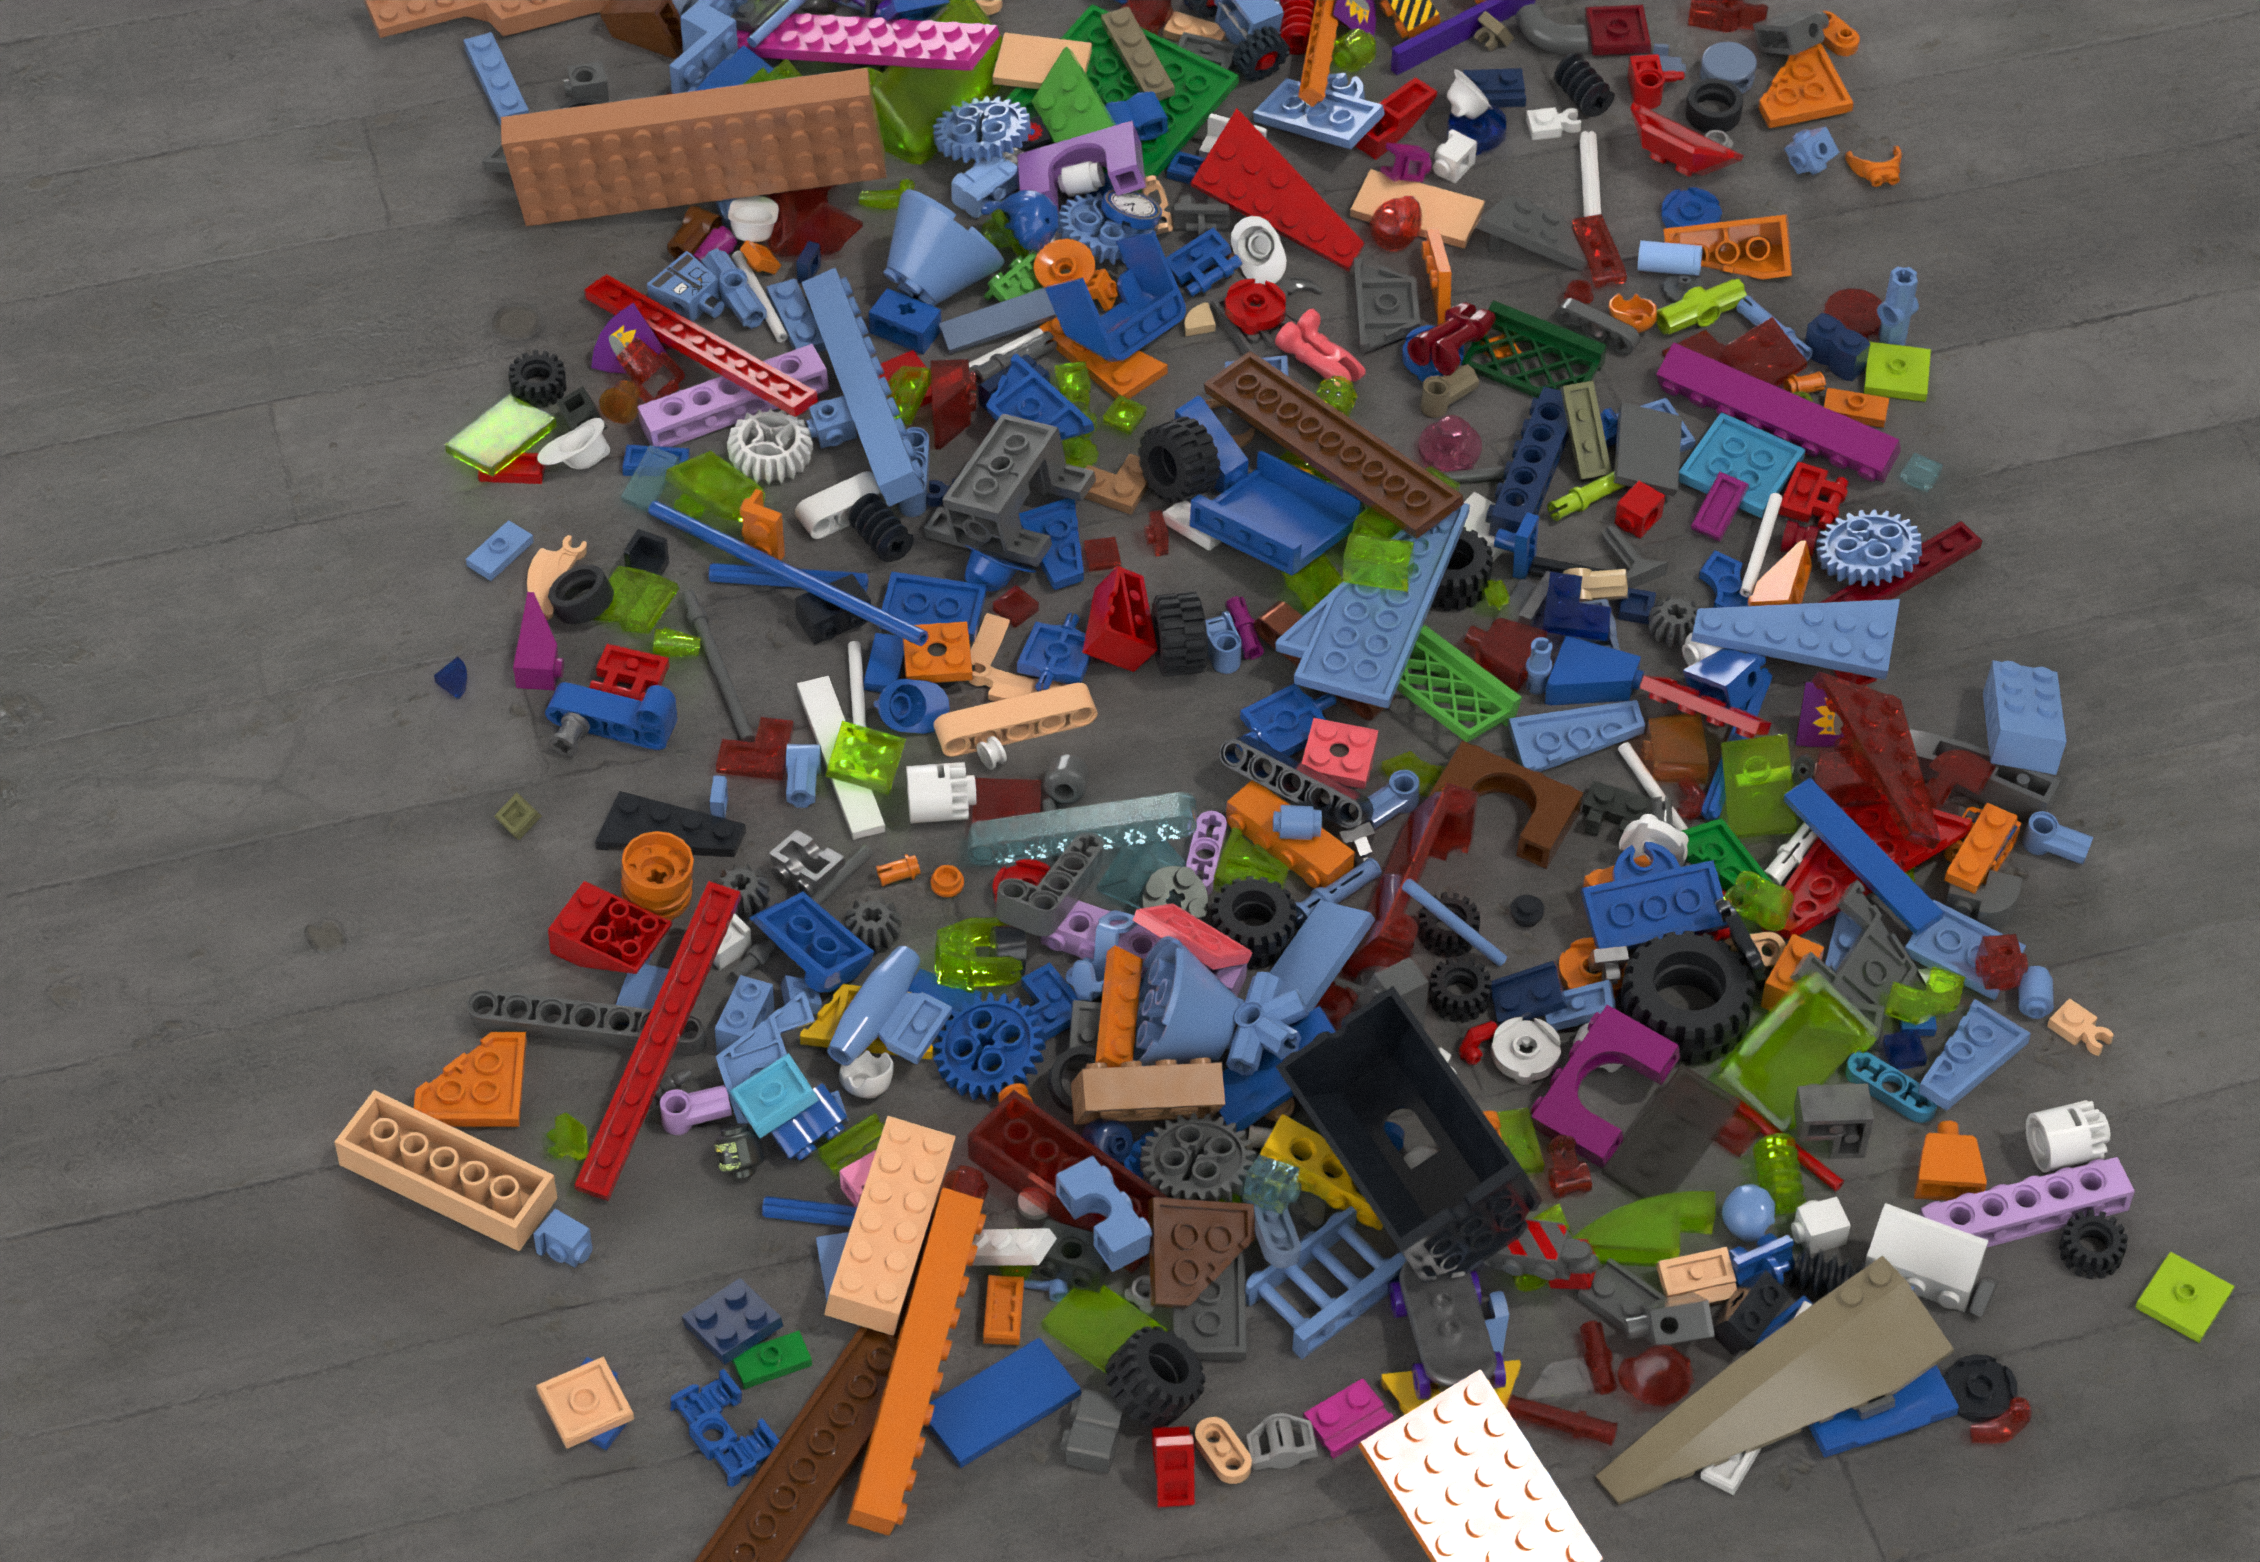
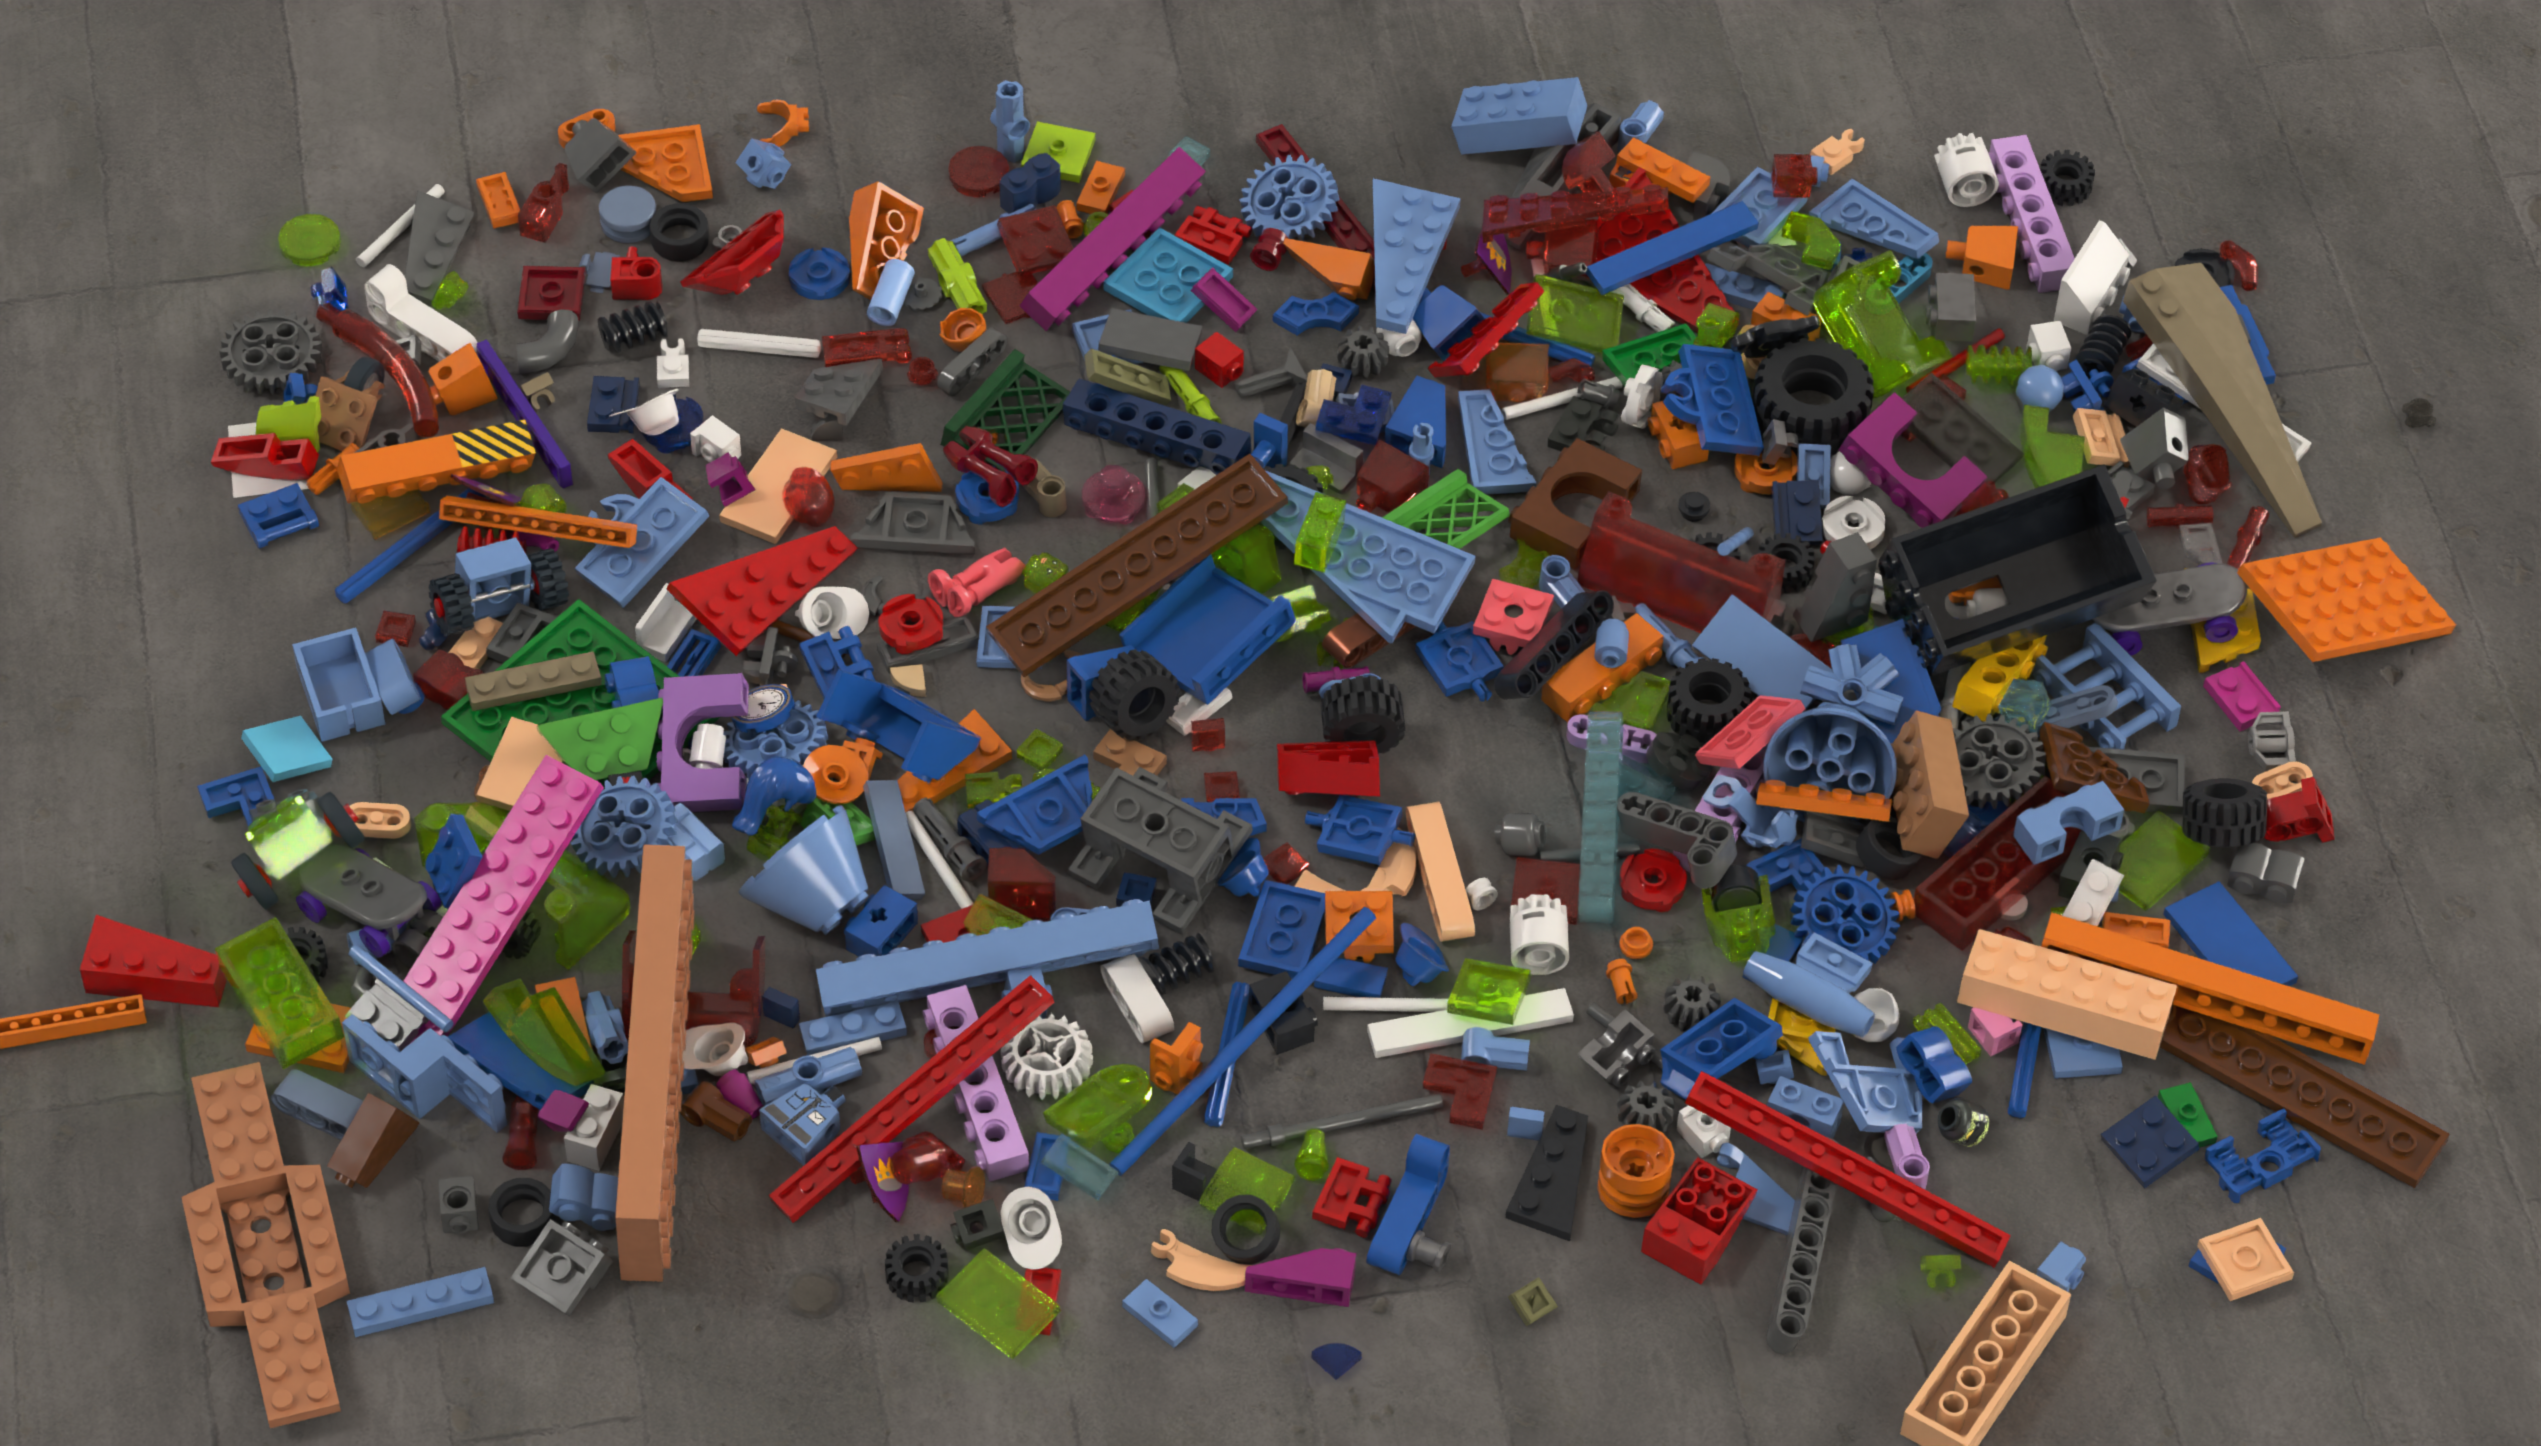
camera: 85 degrees left, 0 degrees up
(480, 1085) = (1873, 1342): orange plate -> none
(774, 1095) = (1918, 1076): medium azure tile -> none
(1761, 545) = (1278, 275): white piece -> none
(2184, 1297) = (2114, 132): lime plate -> none

